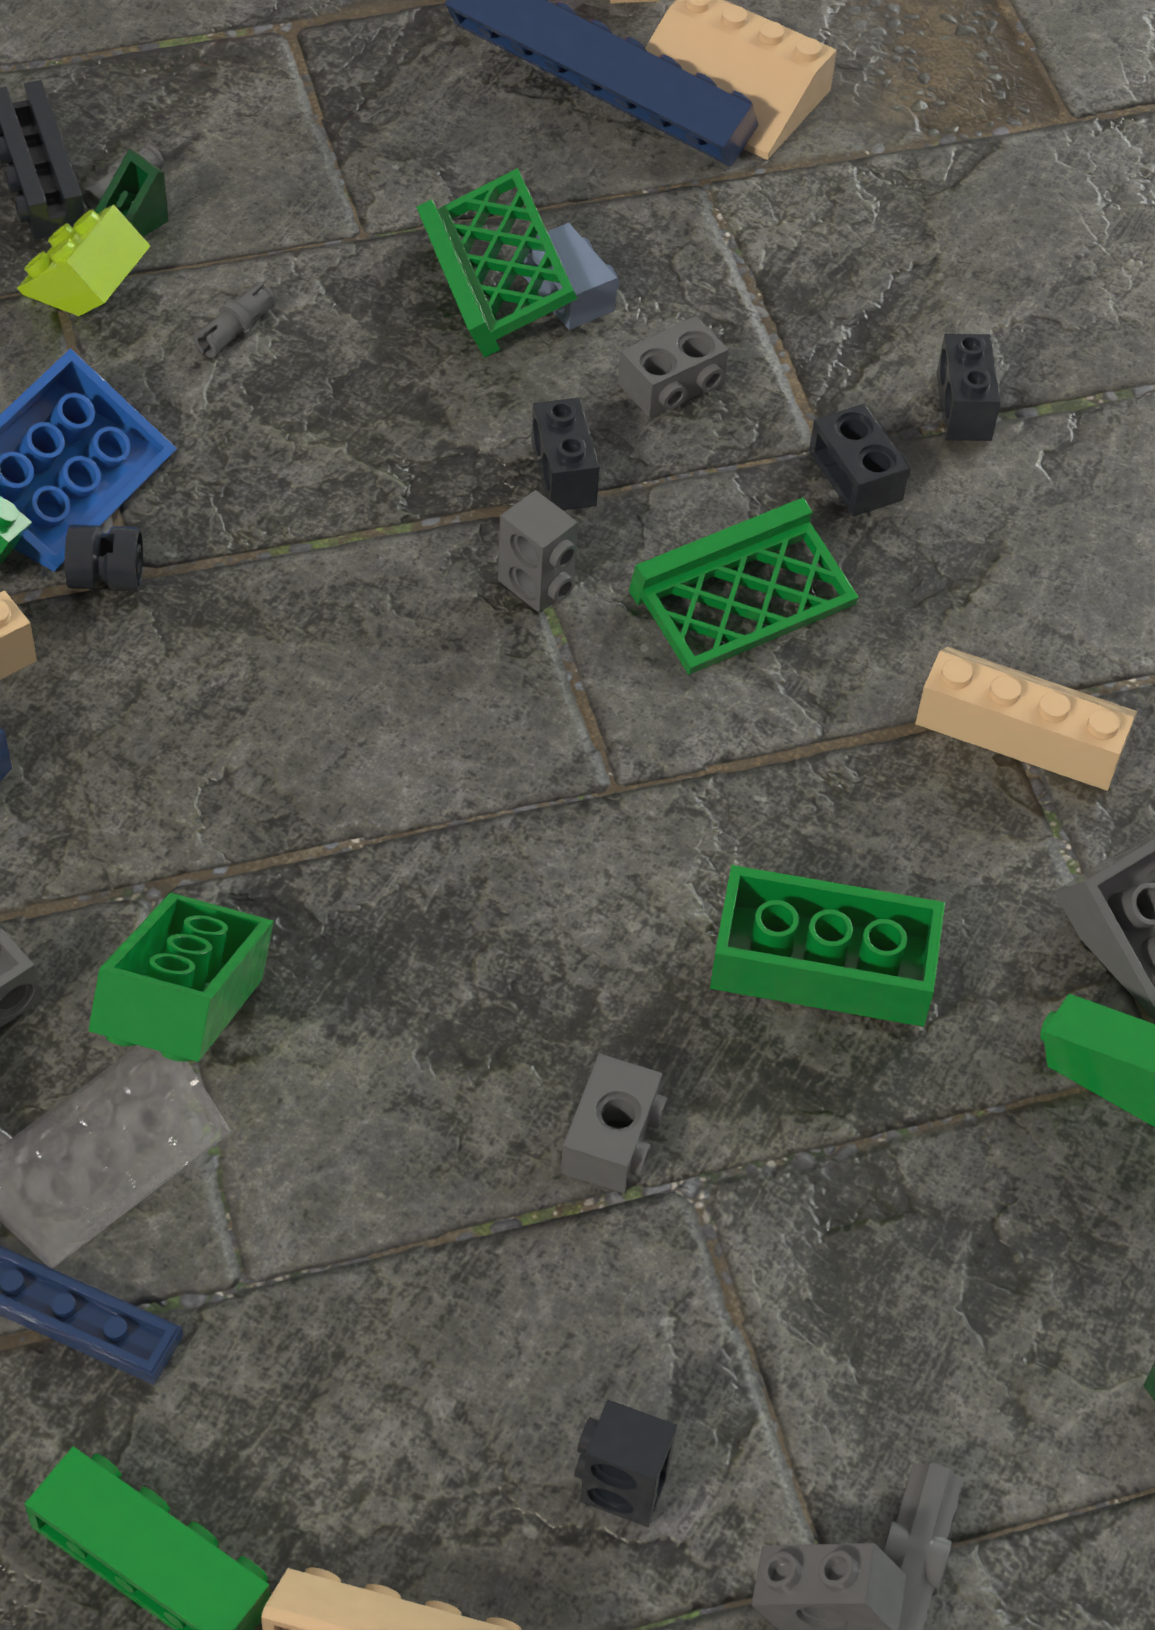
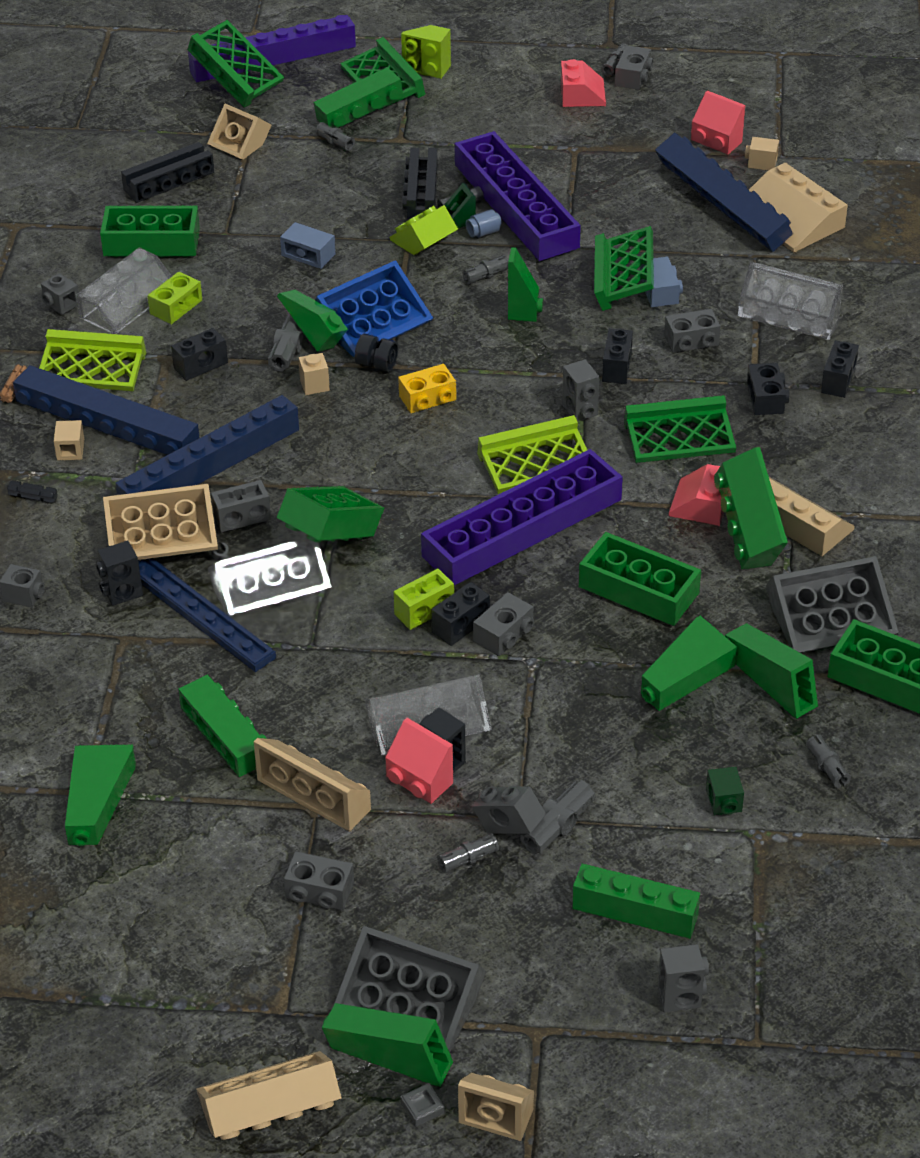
camera: 25 degrees right, 10 degrees down
(191, 223) = (483, 223): none -> sand blue brick
(233, 150) = (517, 196): none -> dark purple brick
(235, 613) = (427, 388): none -> yellow brick
(337, 360) = (522, 290): none -> green slope
(438, 1115) = (418, 597): none -> lime brick
(470, 686) = (529, 440): none -> lime fence
(521, 1125) = (455, 615): none -> black brick
(525, 1400) = (459, 696): none -> clear slope
(542, 869) = (521, 516): none -> dark purple brick
(599, 1525) = (420, 761): none -> coral slope
(825, 267) = (790, 300): none -> clear slope
(849, 719) = (698, 497): none -> coral slope
(979, 742) = (750, 509): none -> green slope
(997, 1106) = (688, 664): none -> green slope

